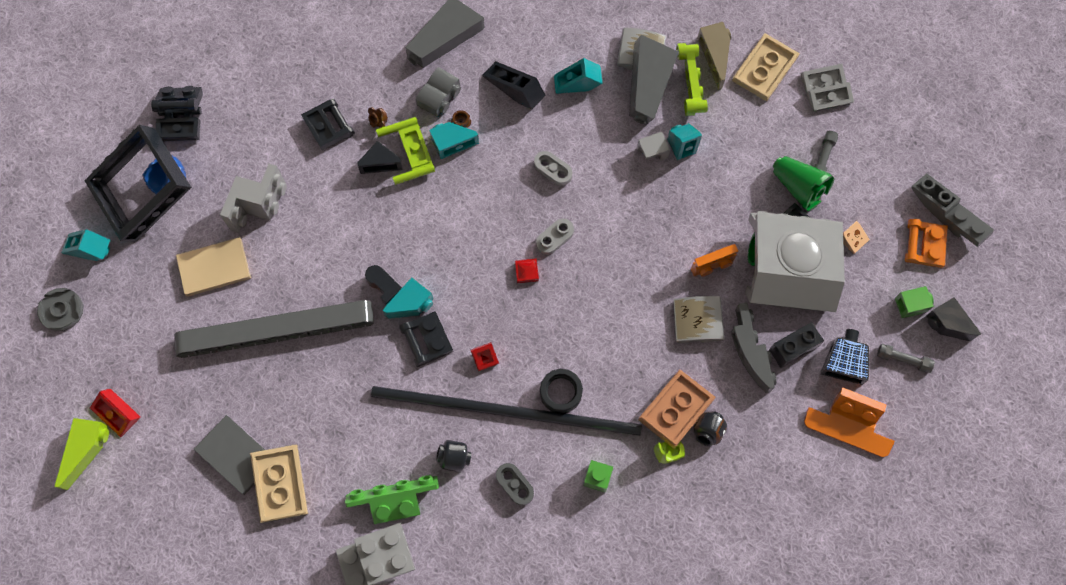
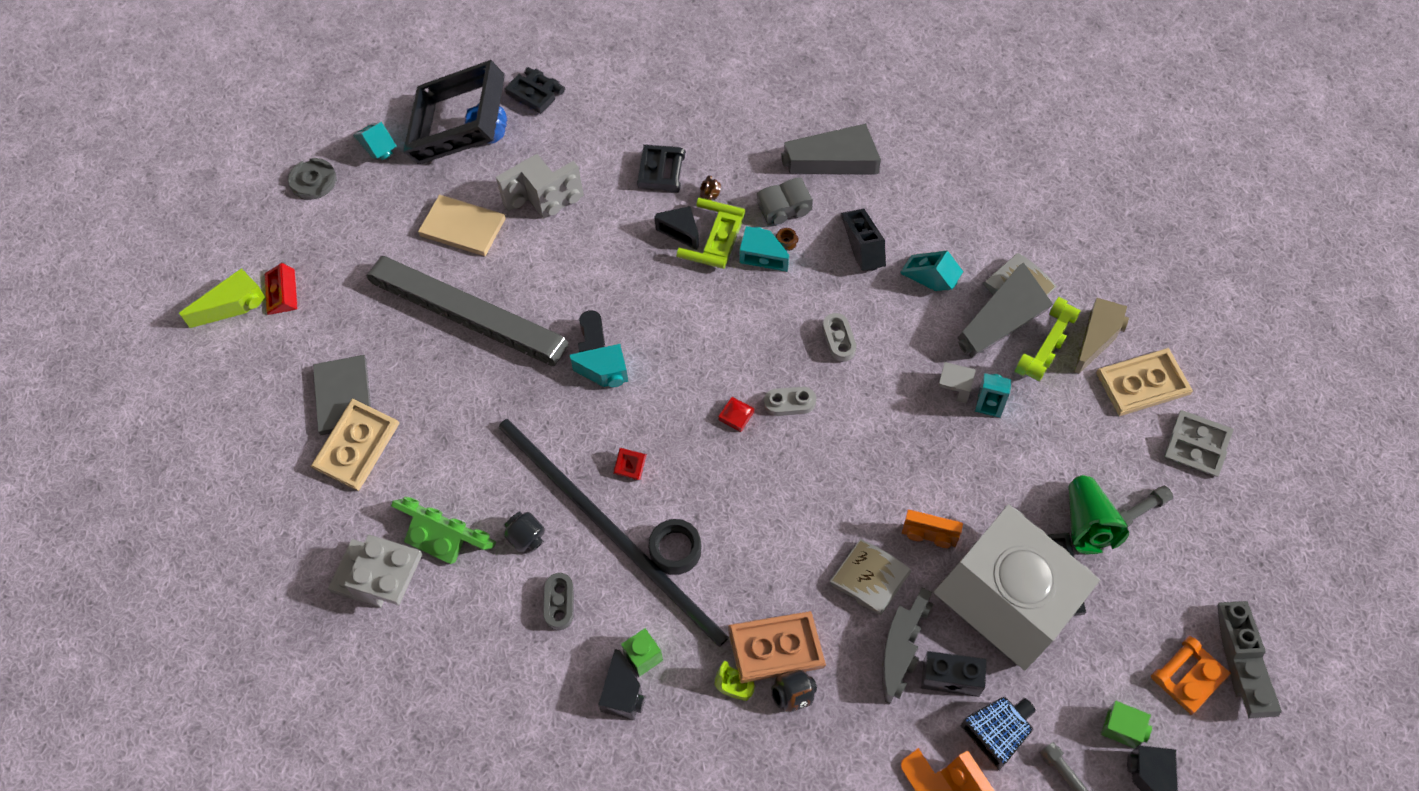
camera: 40 degrees right, 10 degrees down
(177, 98) = (549, 67): black plate -> none
(433, 335) = (599, 412): black plate -> none
(604, 509) = (621, 690): none -> black slope
(855, 237) = (1109, 612): light nougat slope -> none

